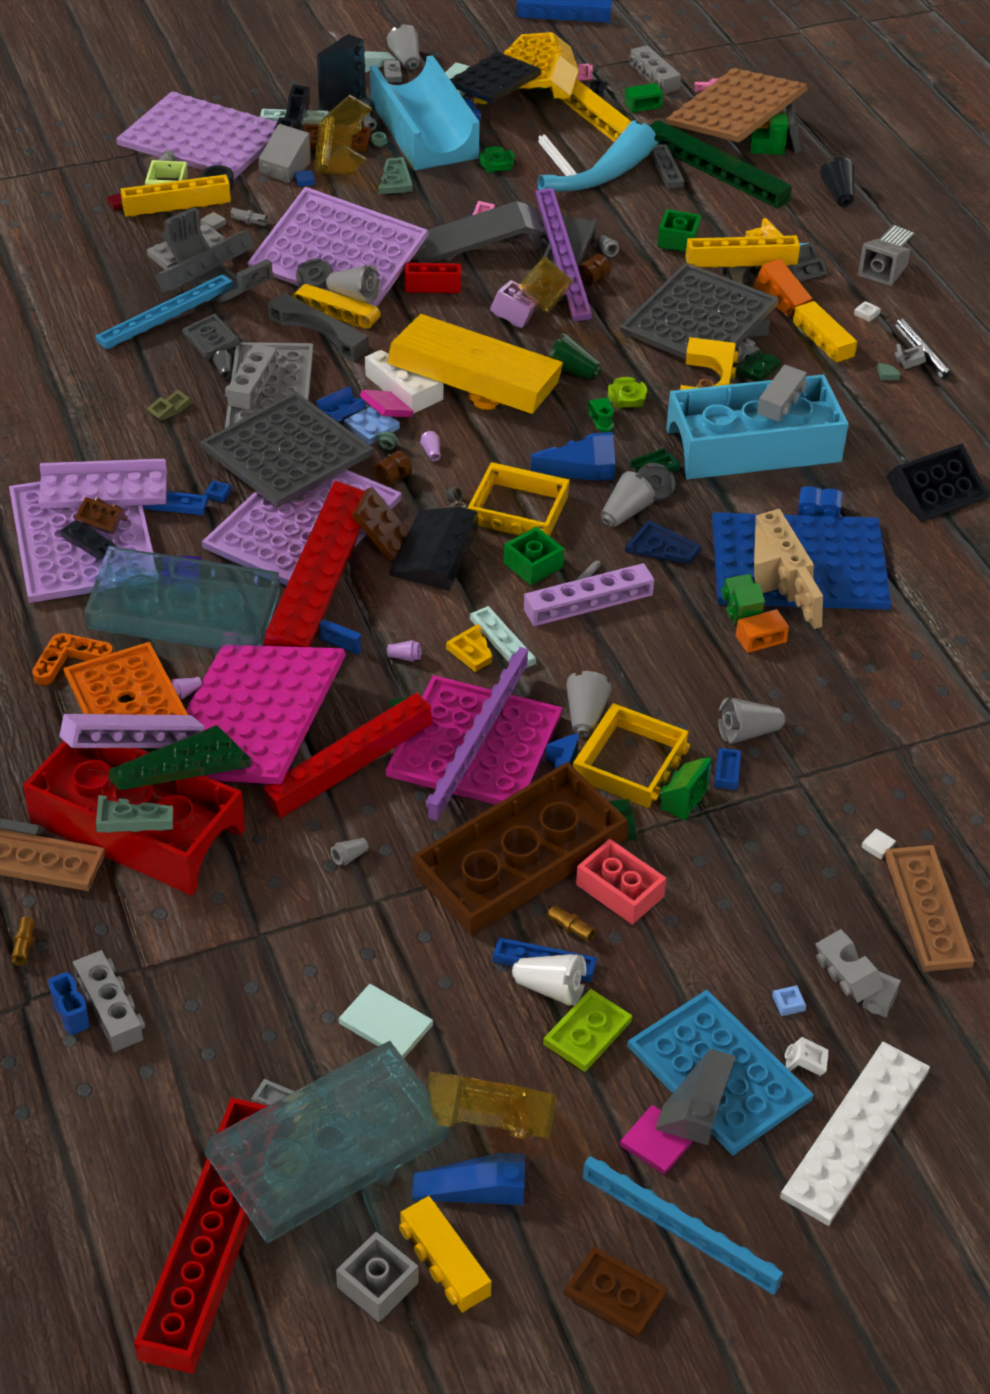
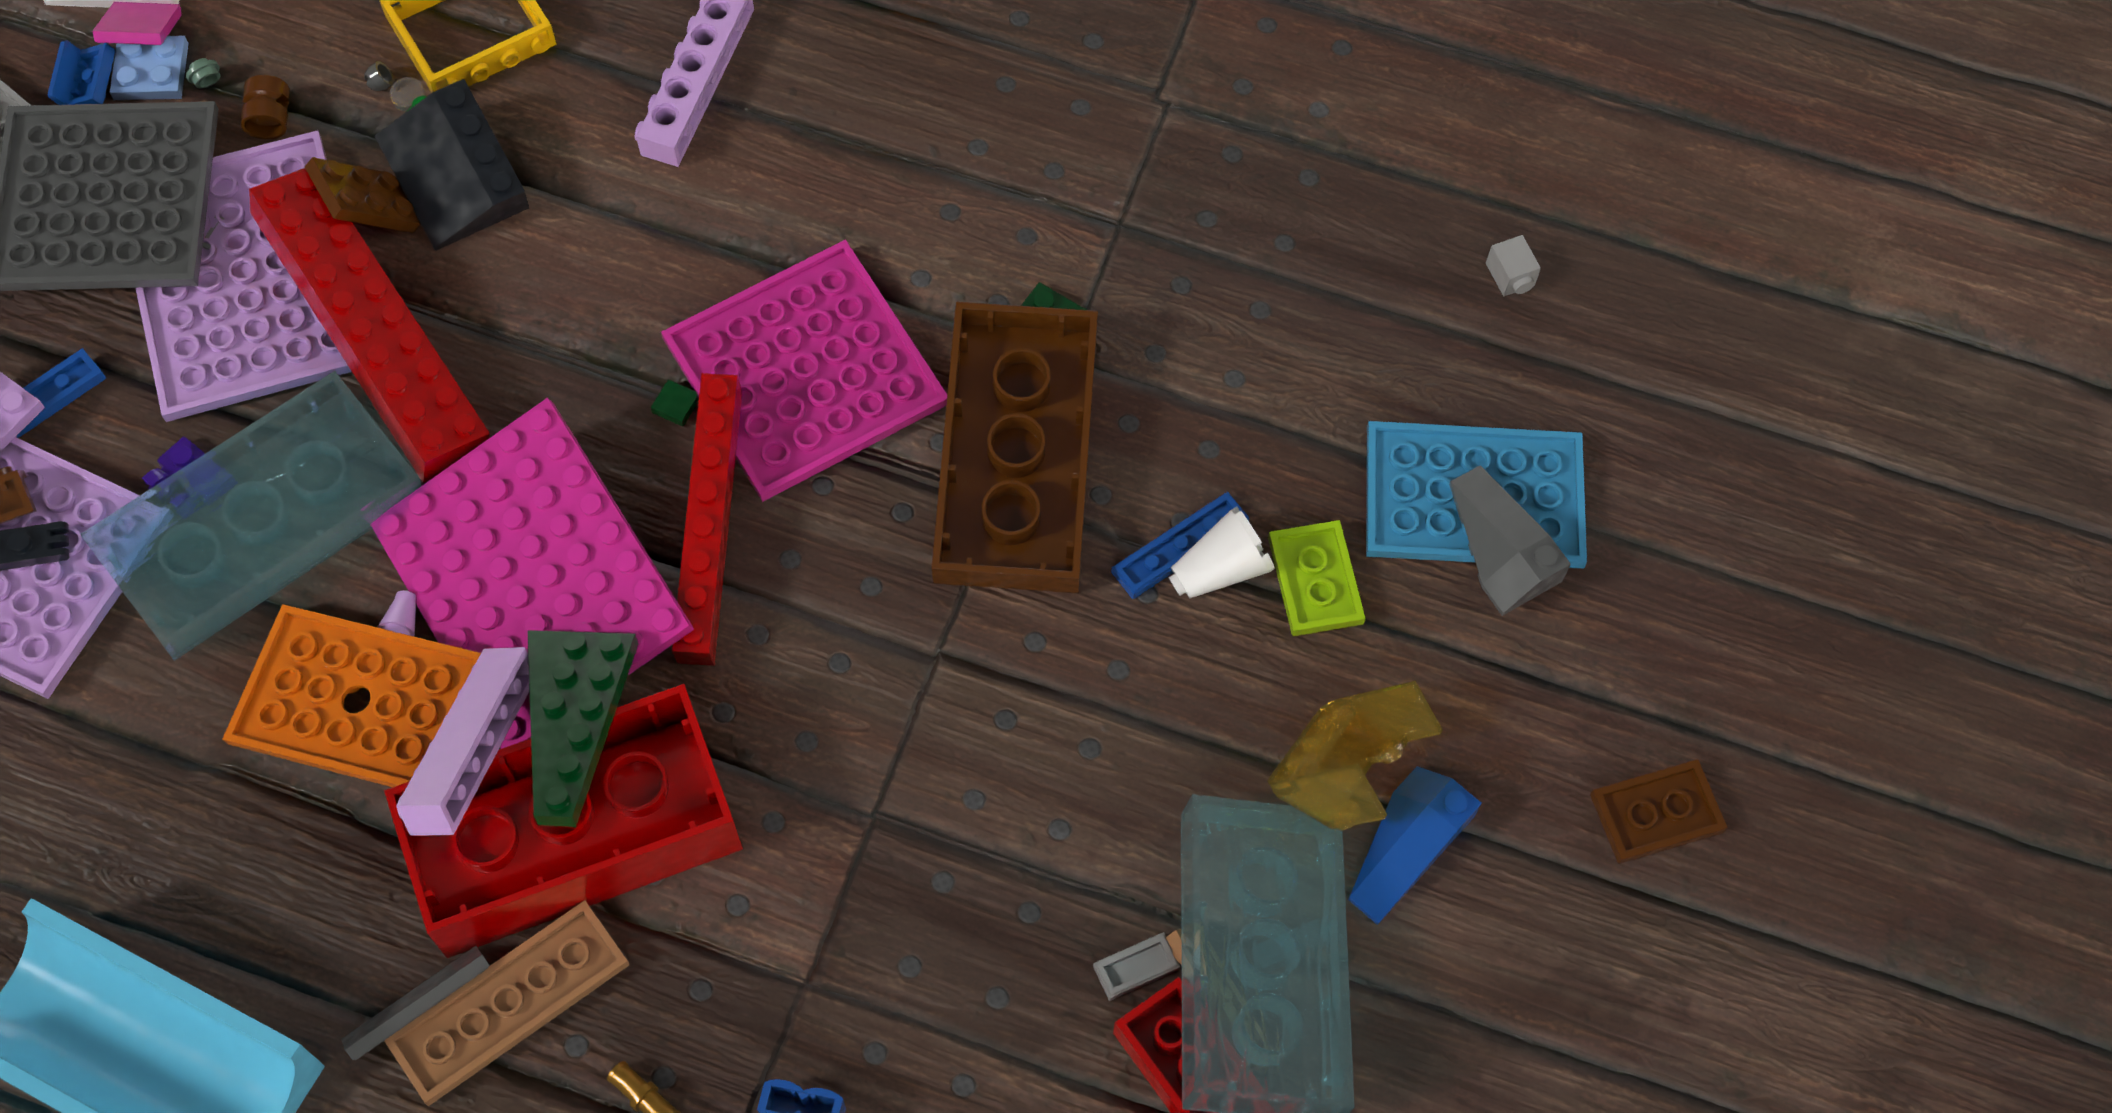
camera: 50 degrees left, 20 degrees up
(68, 648) = (188, 708): orange beam -> none
(108, 1000) = (885, 1083): light grey brick -> none
(123, 816) = (610, 845): sand green wing -> none
(218, 491) = (80, 329): blue tile -> none
(340, 636) = (495, 381): blue tile -> none
(347, 851) = (843, 629): light grey cone -> none
(377, 1276) = (1465, 1036): light grey brick -> none
(384, 1018) = (1123, 774): light aqua tile -> none
(405, 650) = (588, 330): lavender cone -> none
(431, 444) = (266, 34): lavender cone -> none
(445, 1254) = (1483, 945): yellow brick -> none
(471, 648) = (655, 259): yellow wing -> none
(474, 738) = (812, 365): medium lavender plate -> none
(499, 634) = (668, 213): light aqua tile -> none
(533, 555) = (580, 77): green brick -> none
(563, 750) = (917, 291): blue slope -> none
(572, 923) = (1160, 479): pearl gold pin -> none
(587, 700) = (867, 210): light grey cone -> none
(590, 570) = (656, 47): light grey piece -> none
(621, 881) = (1156, 385): coral brick -> none
(641, 725) = (965, 176): yellow window -> none
(653, 1146) = (1508, 636): dark pink tile -> none
(682, 1225) = (1641, 682): dark azure plate -> none
(686, 788) = (1084, 213): green slope -> none
(727, 768) = (1084, 152): blue tile -> none
(748, 720) = (1045, 78): light grey cone -> none
(789, 1000) = (1440, 355): light blue tile -> none
(807, 1055) = (1527, 400): white bracket -> none
(854, 1133) = (1649, 433): white plate -> none
(855, 975) = (1492, 274): light grey arch -> none
(877, 843) = (1318, 101): white tile -> none
(929, 908) = (1442, 129): medium nougat plate -> none

